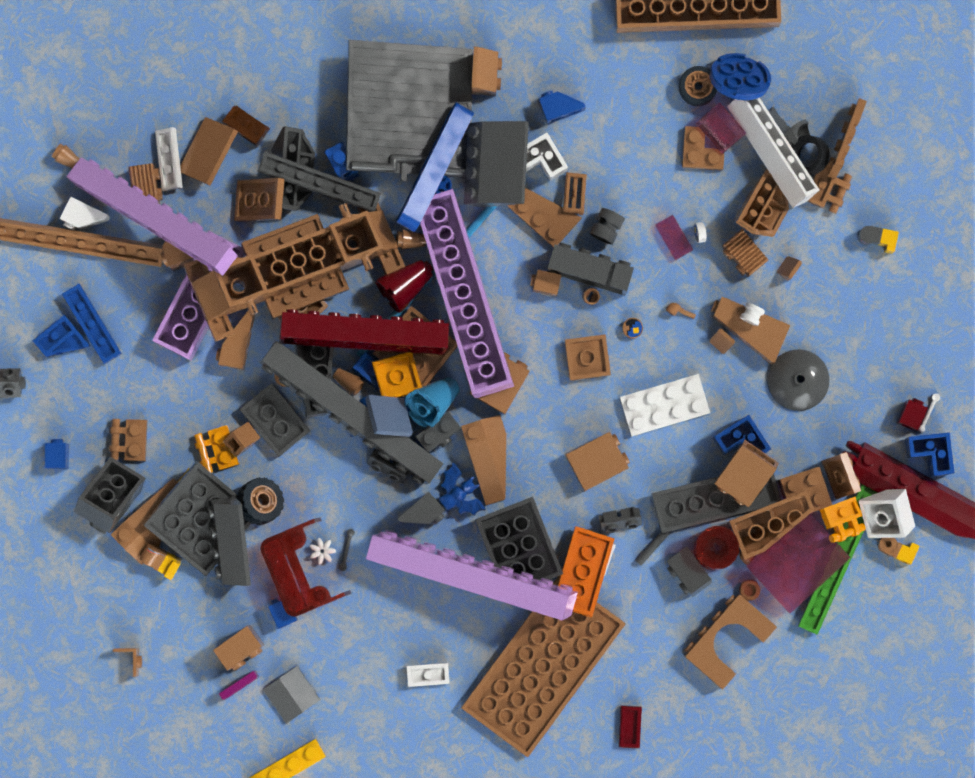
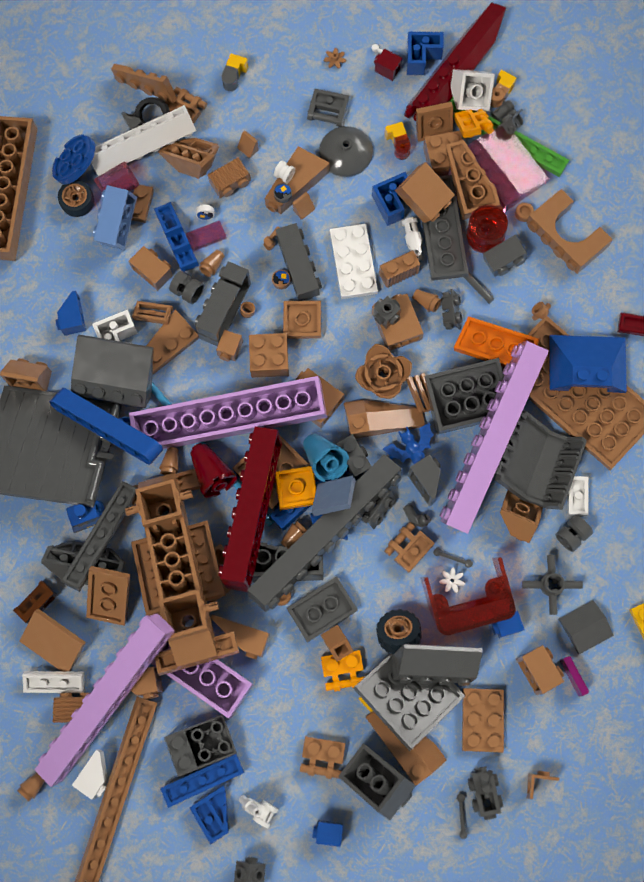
camera: 80 degrees left, 10 degrees down
(68, 385) = (262, 812): none -> white piece
(106, 582) = (460, 798): none -> dark grey hinge
(121, 602) = (484, 785): none -> dark grey brick
(124, 316) = (200, 745): none -> dark grey slope
(160, 560) = (446, 738): leg -> none
(184, 597) = (483, 720): none -> medium nougat plate
(339, 654) = (556, 579): none -> dark grey bar
(348, 508) = (415, 549): none -> medium nougat plate
(382, 506) = (416, 519): none -> dark grey arm
(392, 677) = (576, 530): none -> dark grey wheel
(399, 615) = (520, 517): none -> medium nougat slope
(456, 629) = (539, 463): none -> dark grey hinge
(531, 436) = (381, 359): none -> medium nougat brick
(539, 496) = (420, 382): none -> medium nougat tile
(540, 327) = (268, 355): none -> medium nougat brick
(575, 673) = (587, 362): none -> blue slope
(596, 455) = (388, 317): none -> dark grey brick
(625, 183) = (150, 267): none -> medium nougat brick
(627, 492) = (427, 300): none -> medium nougat cone
(631, 617) = (540, 310): none -> medium nougat plate
(640, 249) = (211, 263): none -> medium nougat cone
(653, 343) = (297, 262): none -> dark grey brick
(659, 456) = (399, 268): none -> medium nougat brick
(667, 204) = (176, 237): none -> blue slope
(672, 135) = (114, 217): none -> medium blue brick
(699, 468) = (413, 238): none -> white piece
(728, 315) = (282, 193): none -> tile
(809, 443) = (400, 140): none -> leg
(854, 564) = (511, 121): none -> dark grey hinge
(855, 352) = (329, 102): none -> dark grey plate
(871, 553) = (501, 111): none -> dark grey pin
(911, 352) = (334, 58): none -> medium nougat plant

